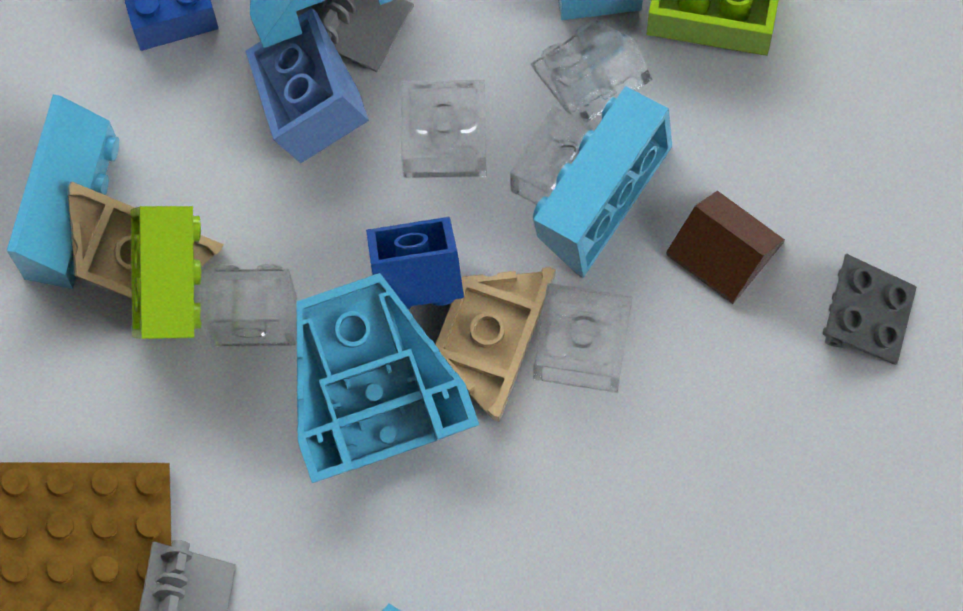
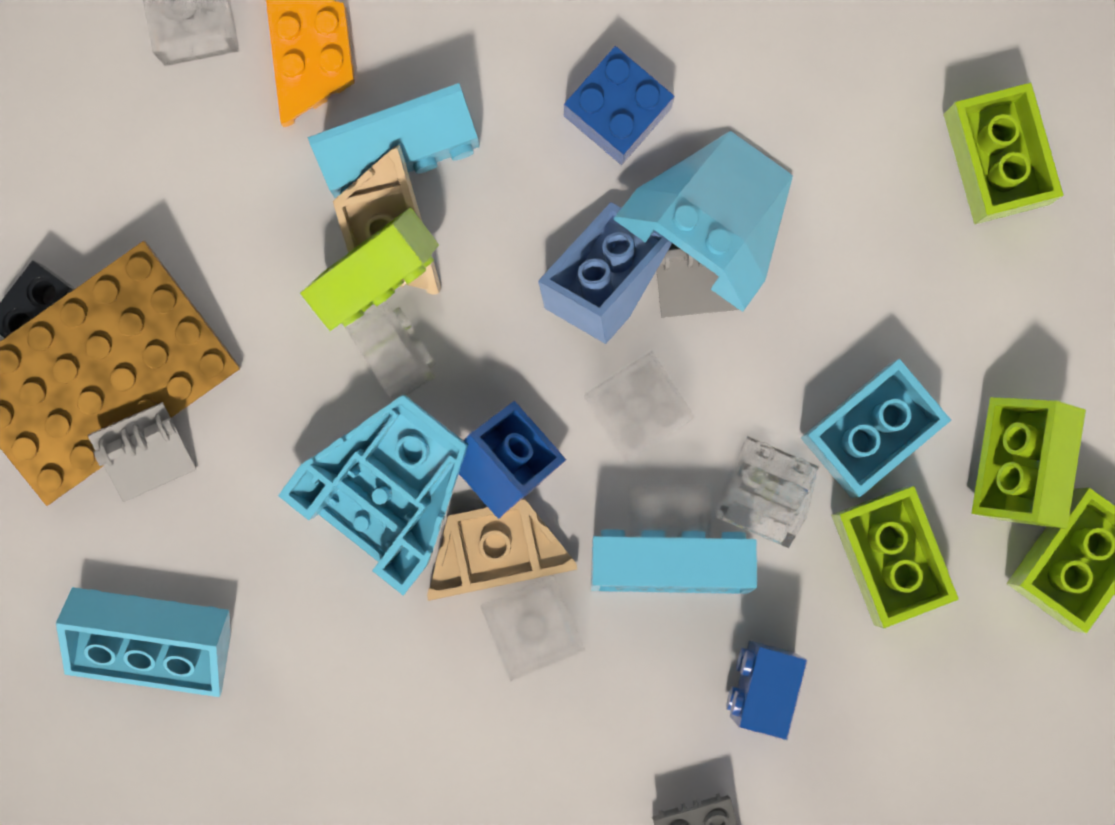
camera: 55 degrees right, 15 degrees up
(723, 246) = (685, 690): reddish brown slope -> none
(766, 165) = (766, 689): none -> blue brick

